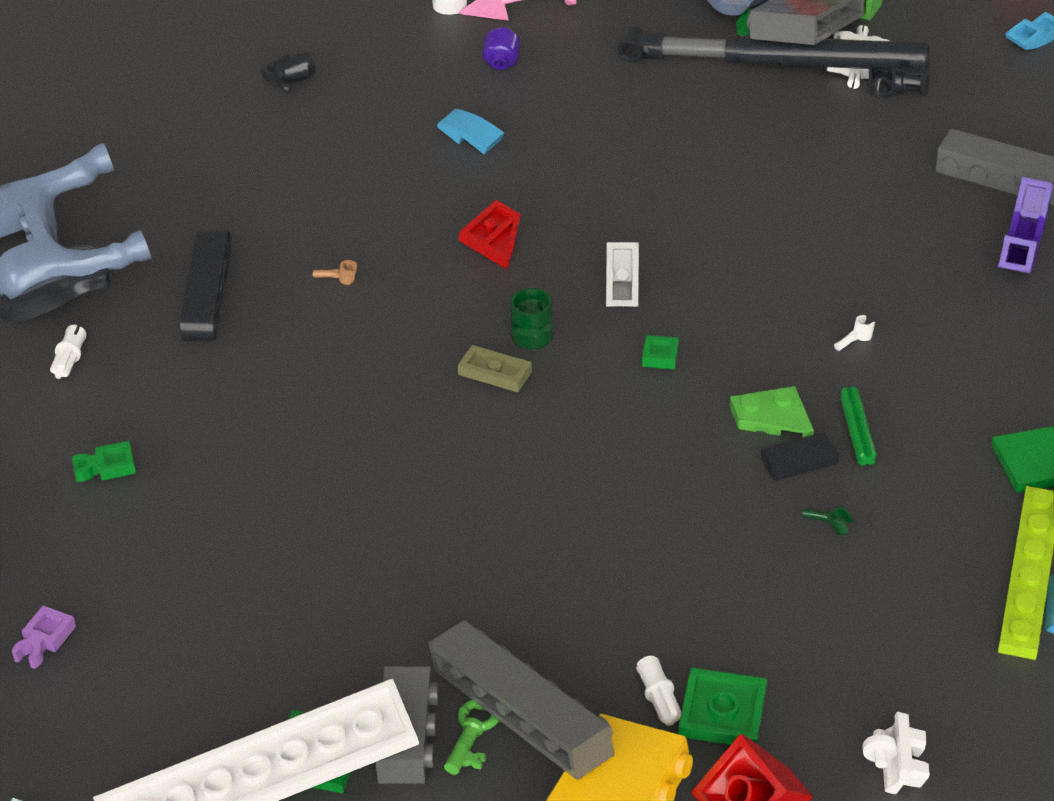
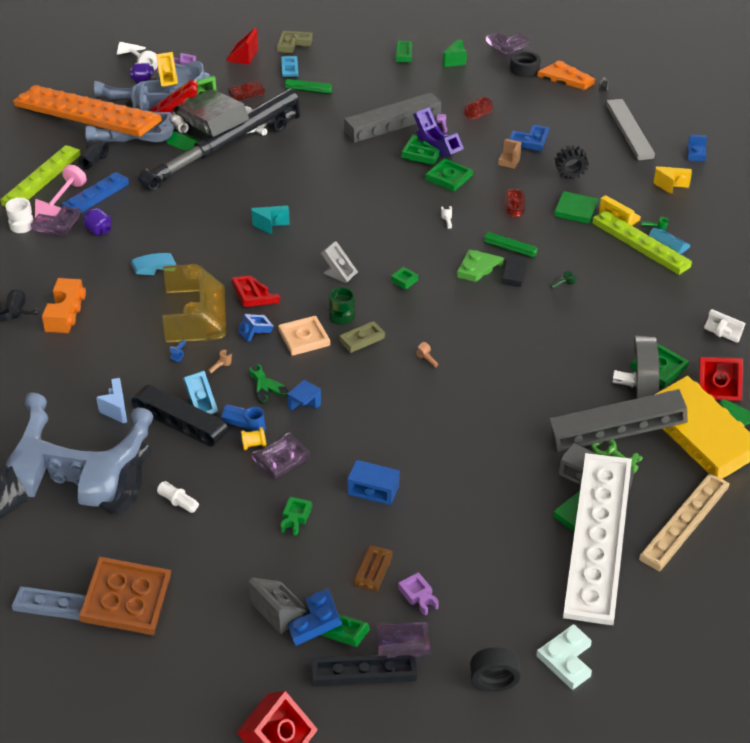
camera: 60 degrees left, 0 degrees up
(68, 578) = (359, 580): none -> clear orange tile
(183, 225) = (113, 404): none -> light blue slope
(204, 403) = (285, 458): none -> clear purple plate
(213, 504) = (373, 482): none -> blue brick
(217, 366) = (253, 438): none -> yellow bush
(243, 340) = (248, 418): none -> blue piece
(248, 284) = (200, 392): none -> slope
(305, 112) = (68, 298): none -> orange arch
(321, 228) = (177, 353): none -> blue hand
(326, 365) = (304, 394): none -> blue panel
(332, 328) = (265, 384): none -> green piece
(421, 209) = (199, 319): none -> clear yellow windscreen
(427, 264) = (254, 323): none -> blue bracket
(456, 318) = (304, 335): none -> light nougat tile
(471, 26) = (57, 225): none -> clear purple plate
(521, 439) = (423, 351): none -> nougat hand
(564, 21) = (97, 192): none -> blue plate
(664, 174) = (267, 217): none -> teal slope
(691, 682) = (646, 366): none -> dark grey slope
(930, 25) = (246, 90): none -> clear red plate
(963, 292) = (449, 174): none -> green tile
(965, 385) = (515, 202): none -> clear red plate
(979, 236) = (420, 151): none -> green wing
(1011, 69) = (308, 86): none -> green axle

